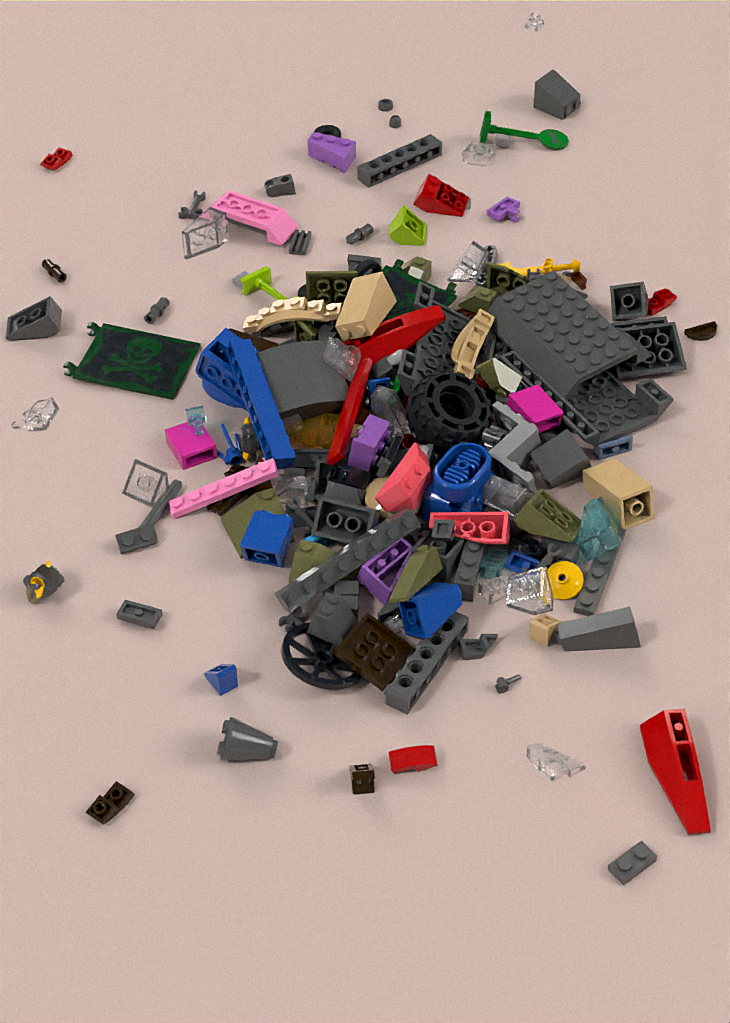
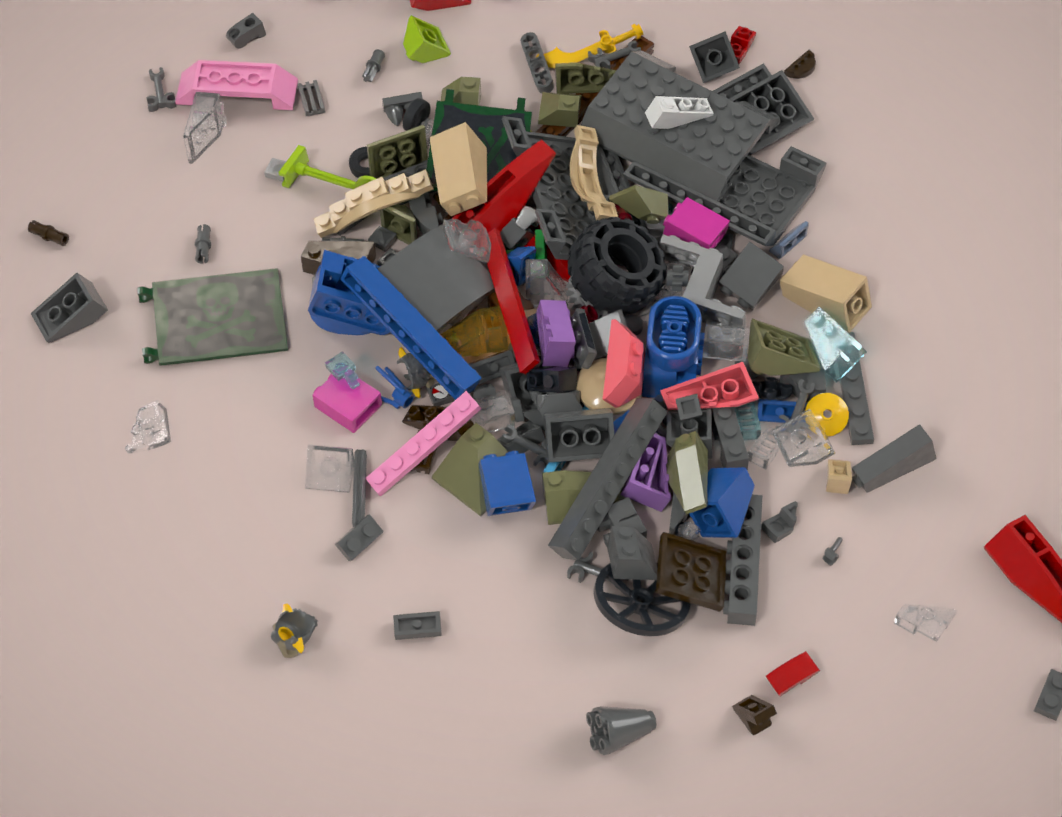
camera: 25 degrees left, 10 degrees up
(223, 678) = (548, 661): blue slope -> none
(469, 264) = (520, 67): clear slope -> none
(560, 318) = (676, 111): none -> white slope

